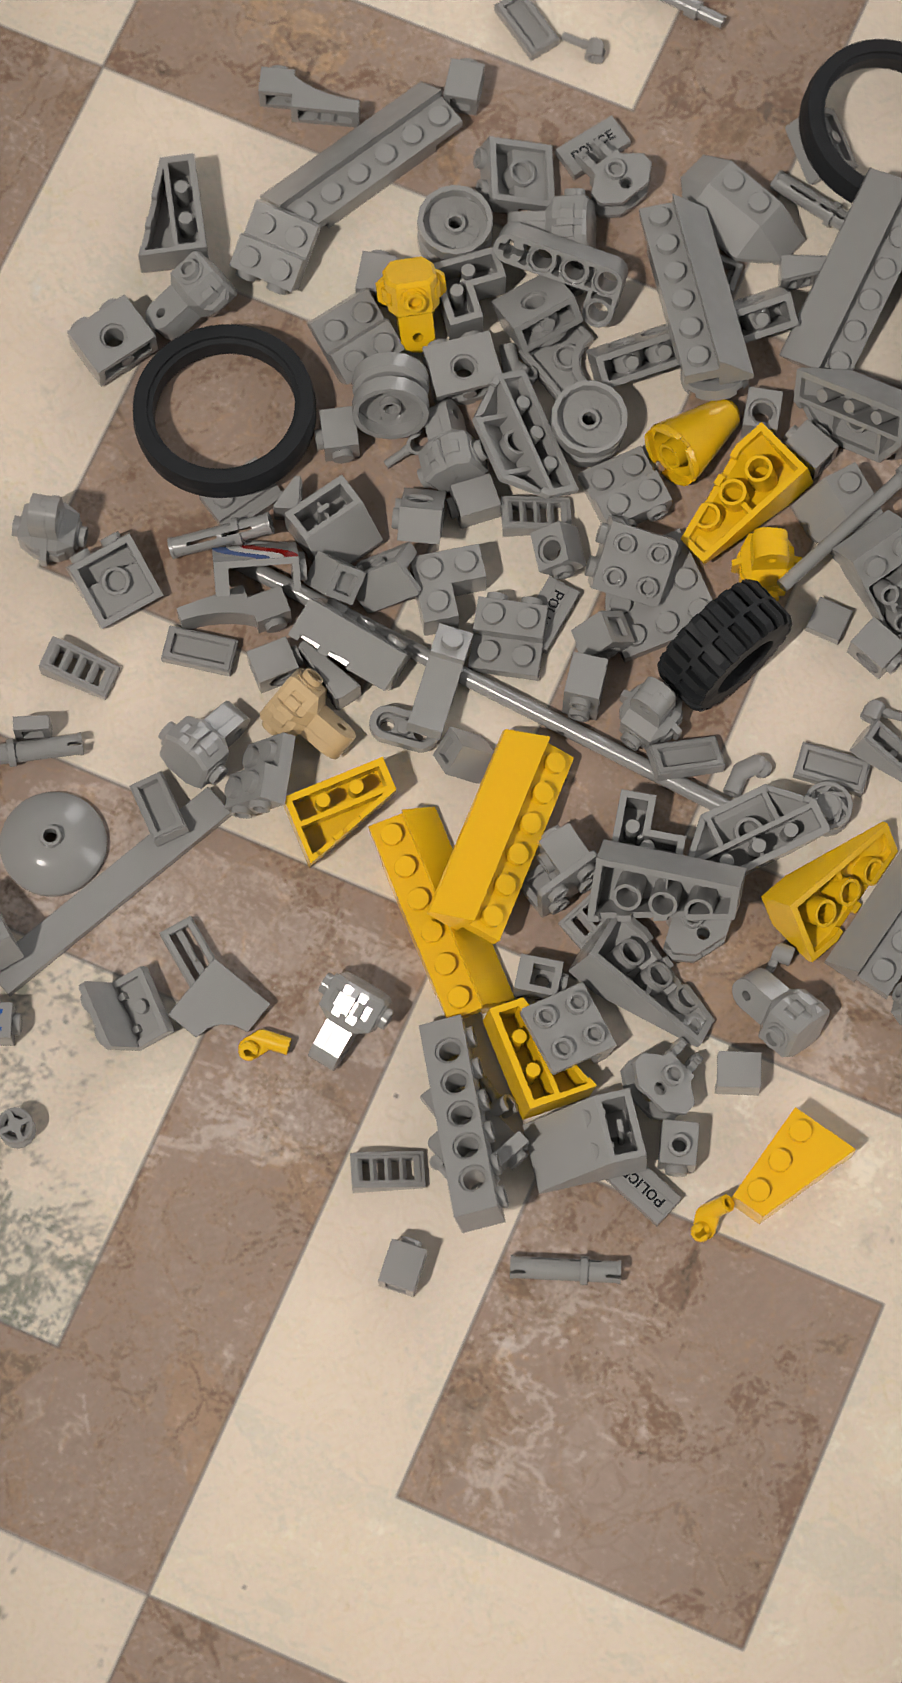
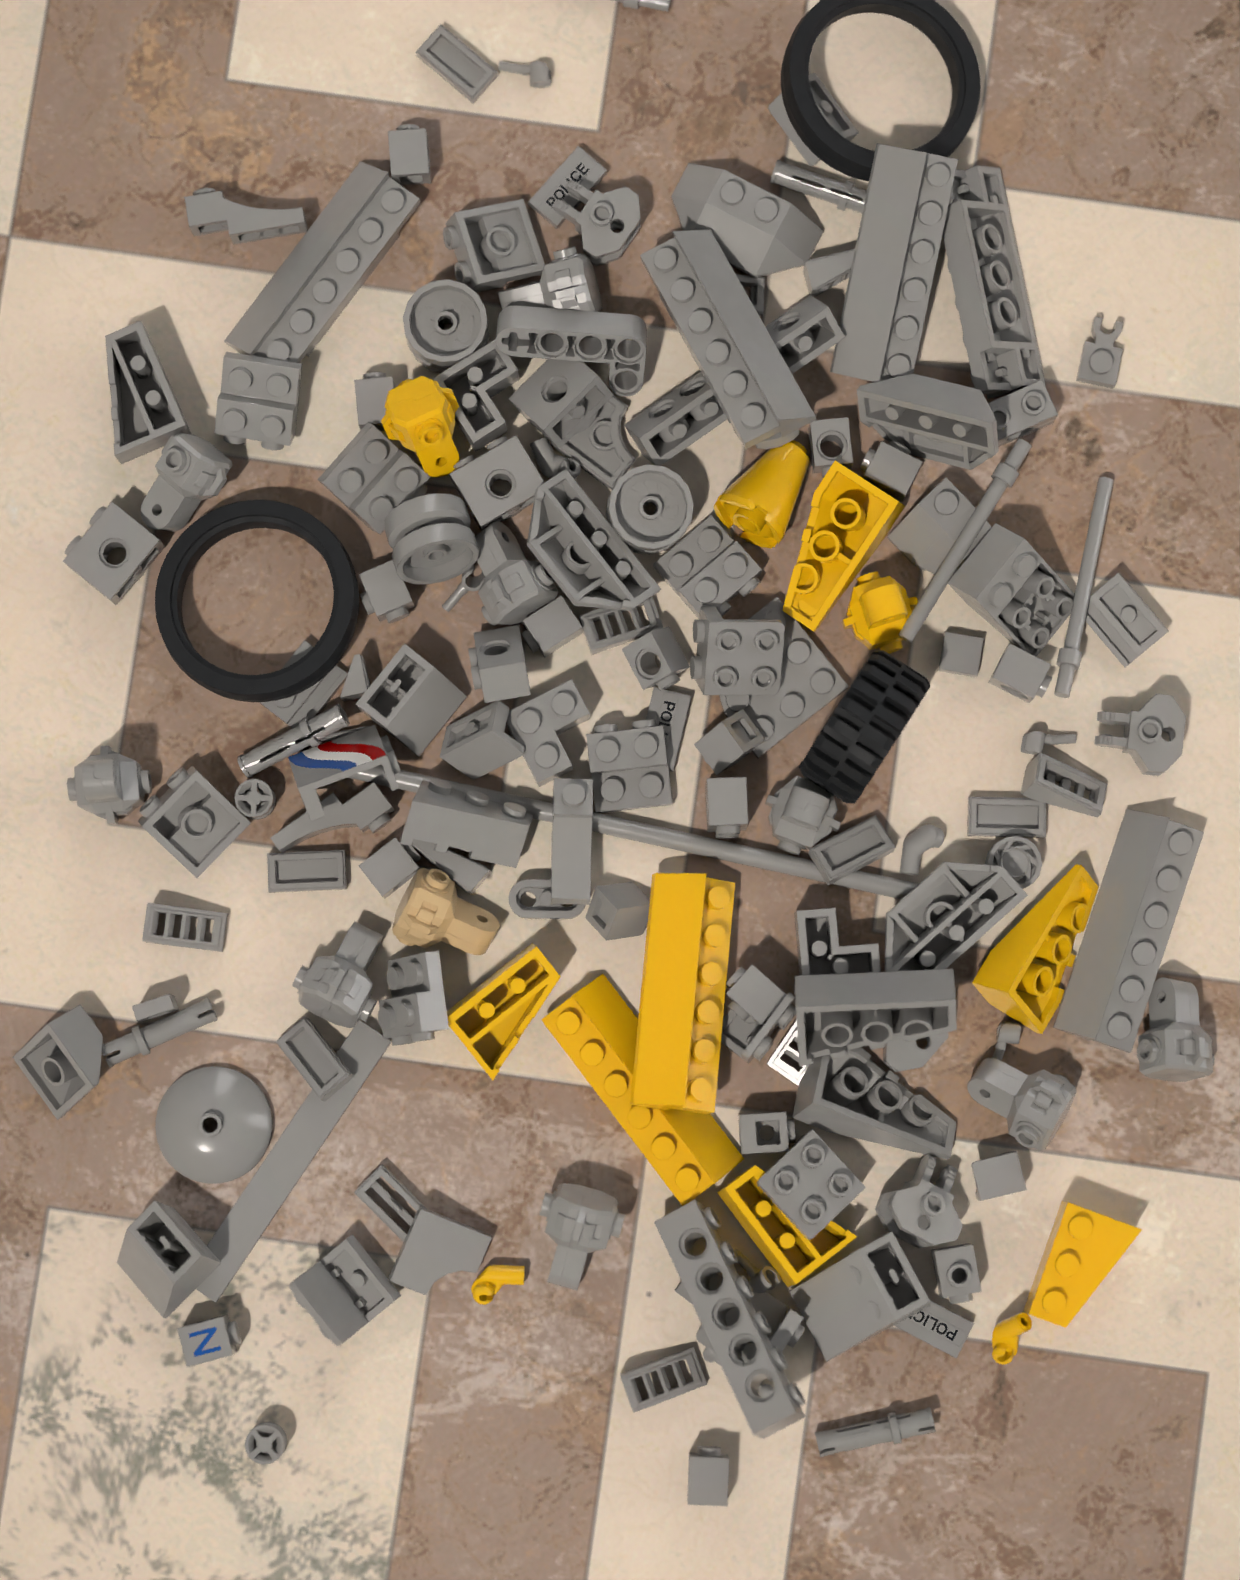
camera: 15 degrees left, 10 degrees up
(173, 569) = (255, 792): none -> light grey wheel
(335, 577) = (429, 759): light grey brick -> none

